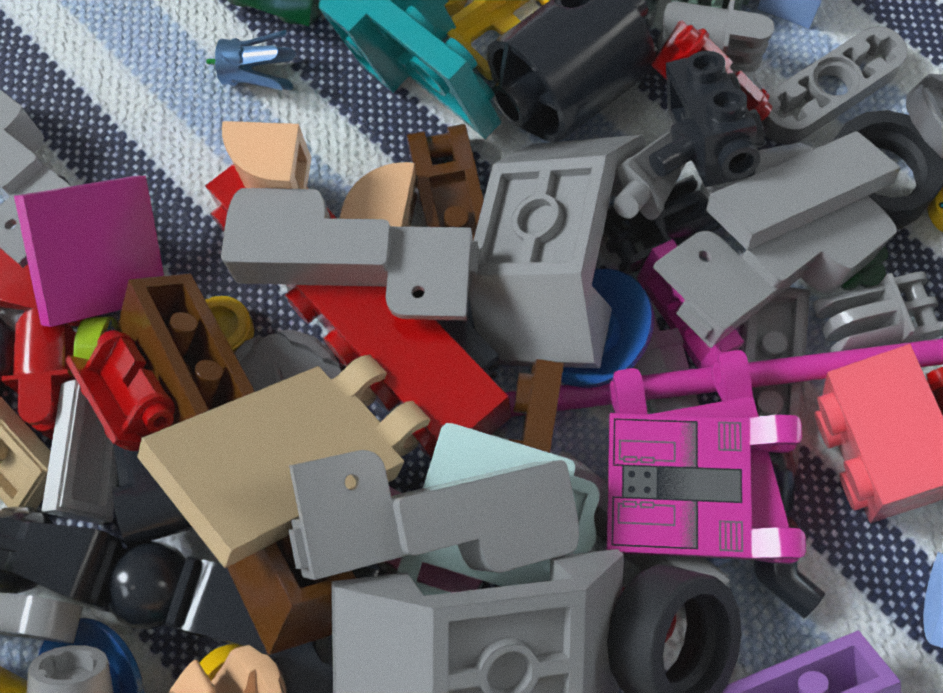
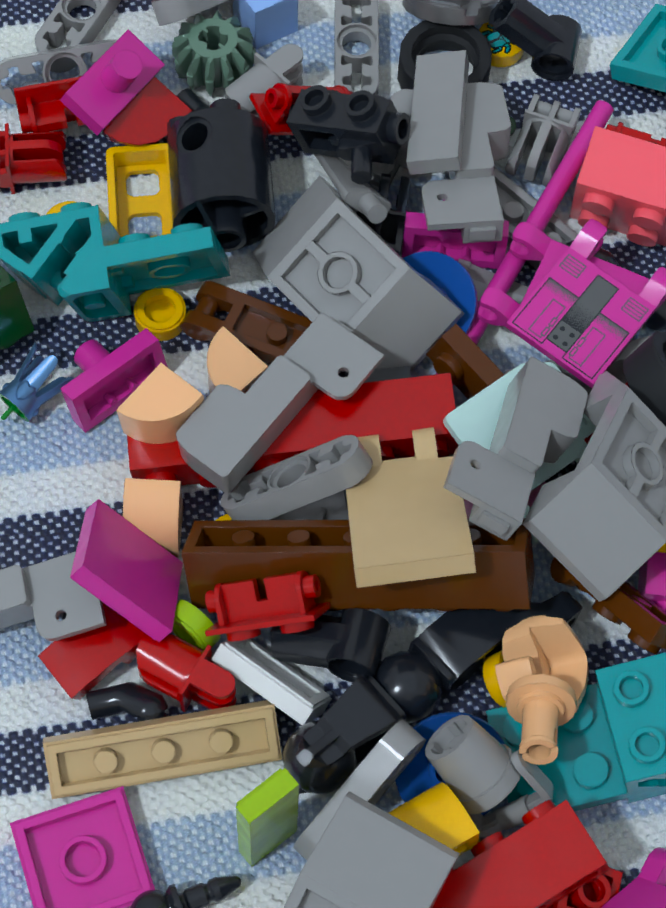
camera: 60 degrees left, 5 degrees down
(187, 237) = (155, 510): none -> light nougat brick
(284, 334) = (299, 480): none -> light grey beam
(326, 121) = (109, 377): none -> dark pink tile
(408, 111) = (160, 312): none -> yellow tile

